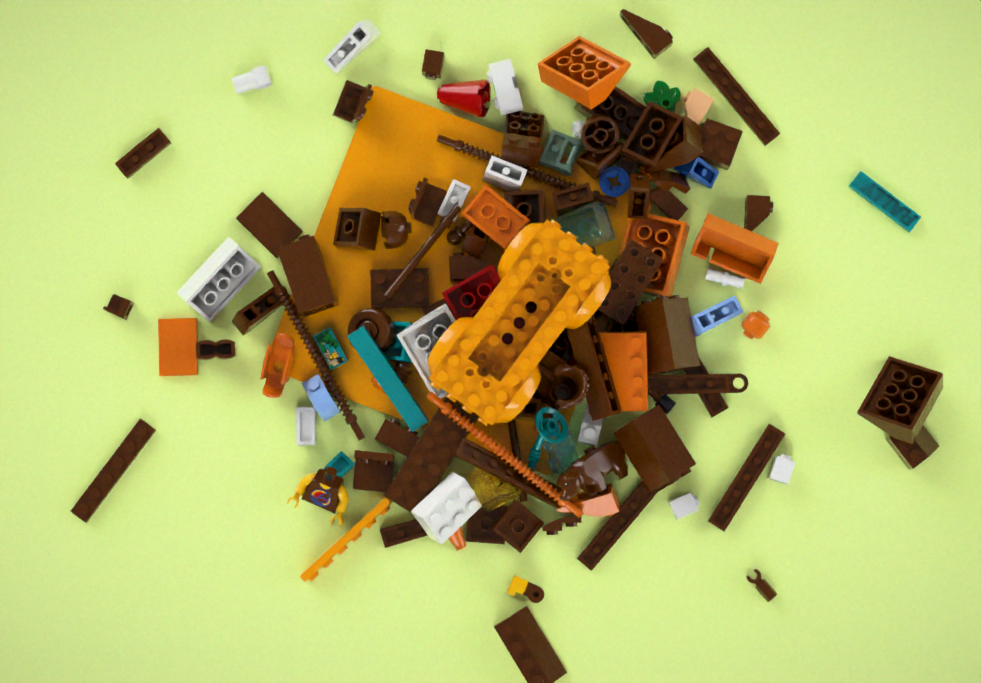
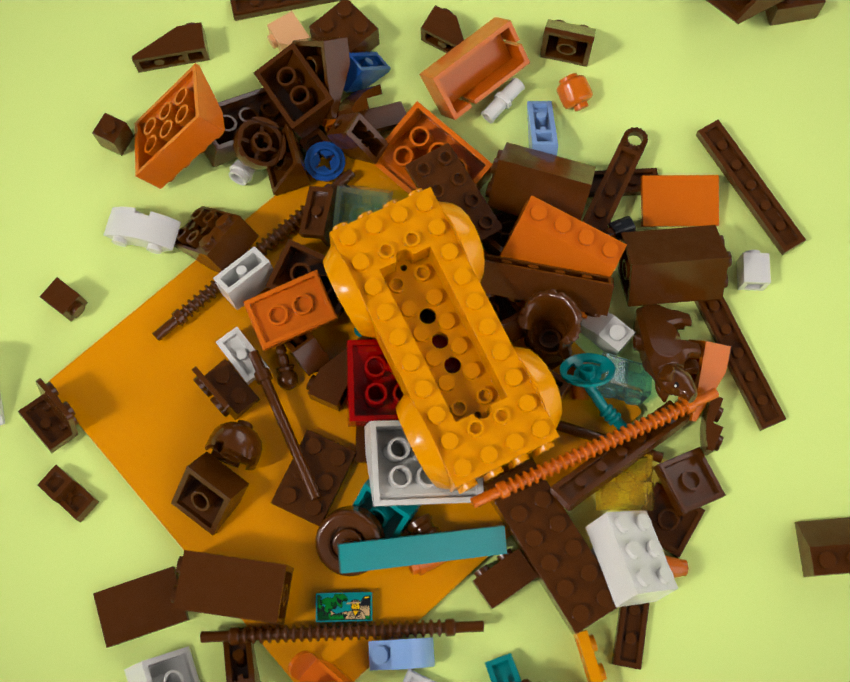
camera: 65 degrees left, 10 degrees down
(313, 140) = (68, 493): none -> reddish brown slope
(373, 471) = (532, 633): reddish brown bracket -> none
(466, 96) = (125, 279): red cone -> none
(524, 587) = (775, 510): leg -> none
(554, 151) = (251, 210): sand green plate -> none
(562, 28) = (113, 134): none -> reddish brown brick
(663, 95) = (251, 64): green plate -> none
(710, 434) = (679, 200): none -> orange tile
(781, 469) = (758, 143): white brick -> none
(792, 301) = (567, 42): none -> reddish brown slope

